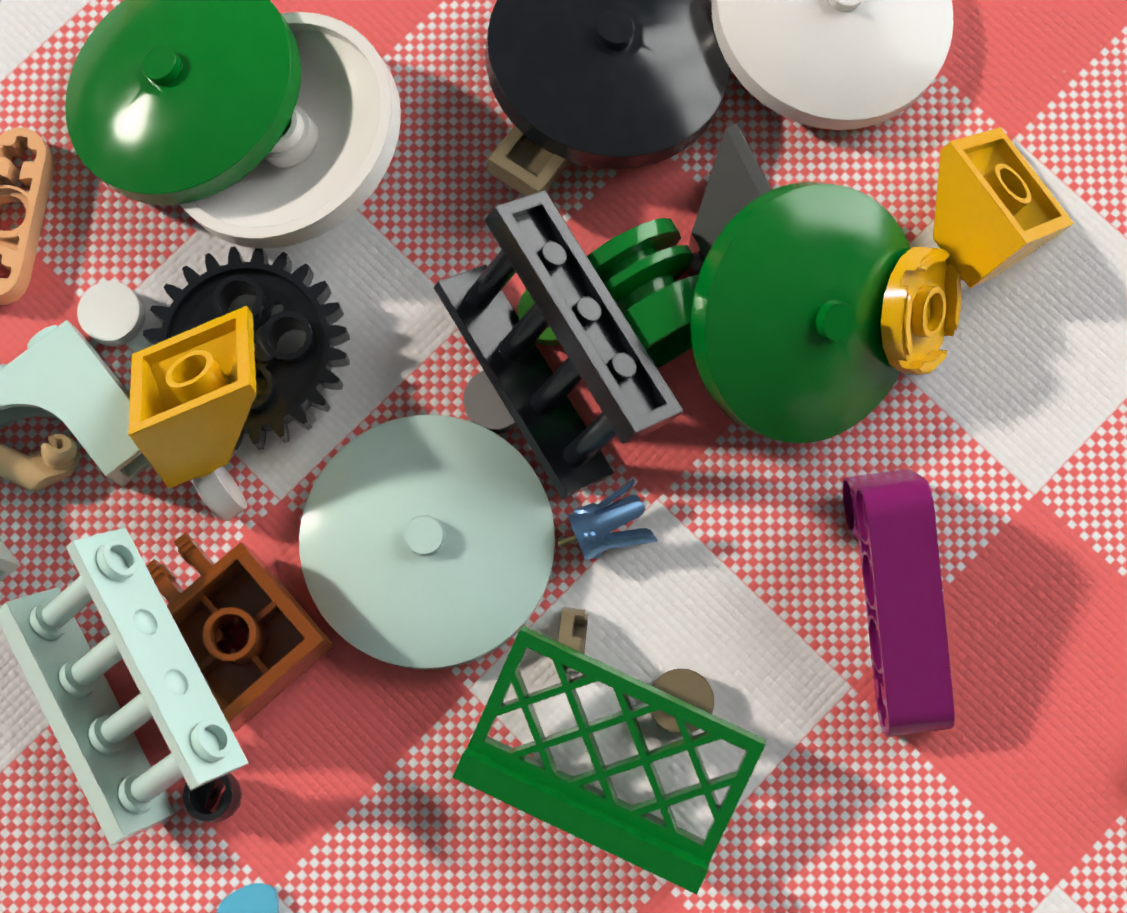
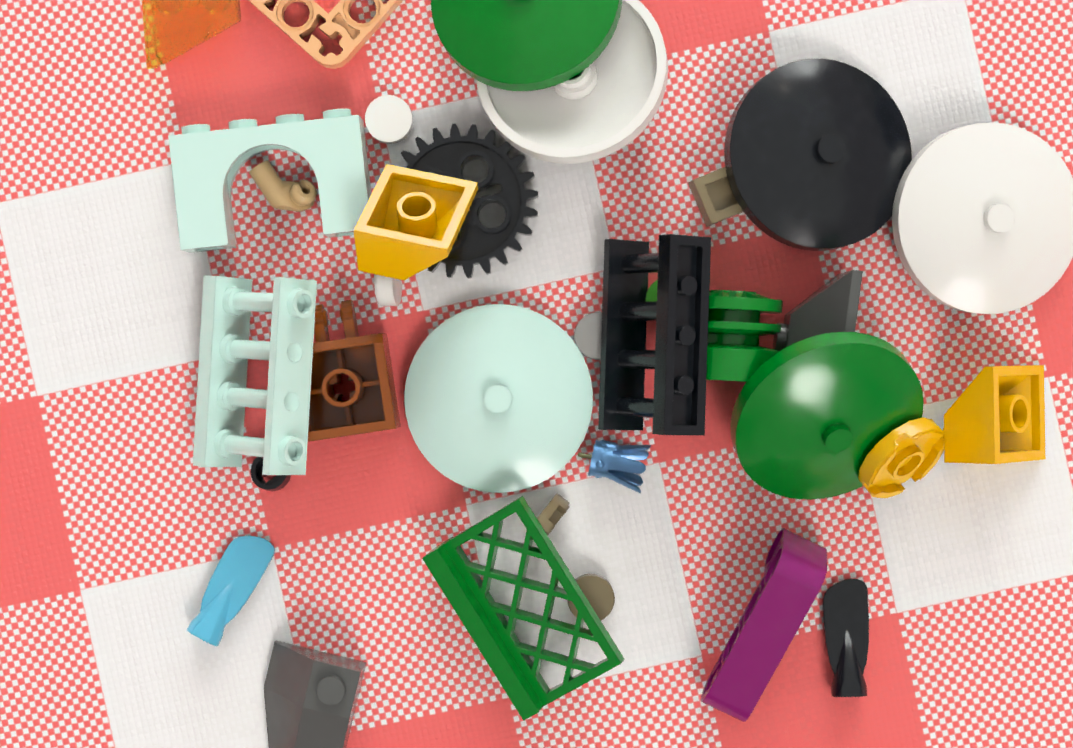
camera: 35 degrees right, 10 degrees up
(999, 555) = (847, 636): none -> black piece

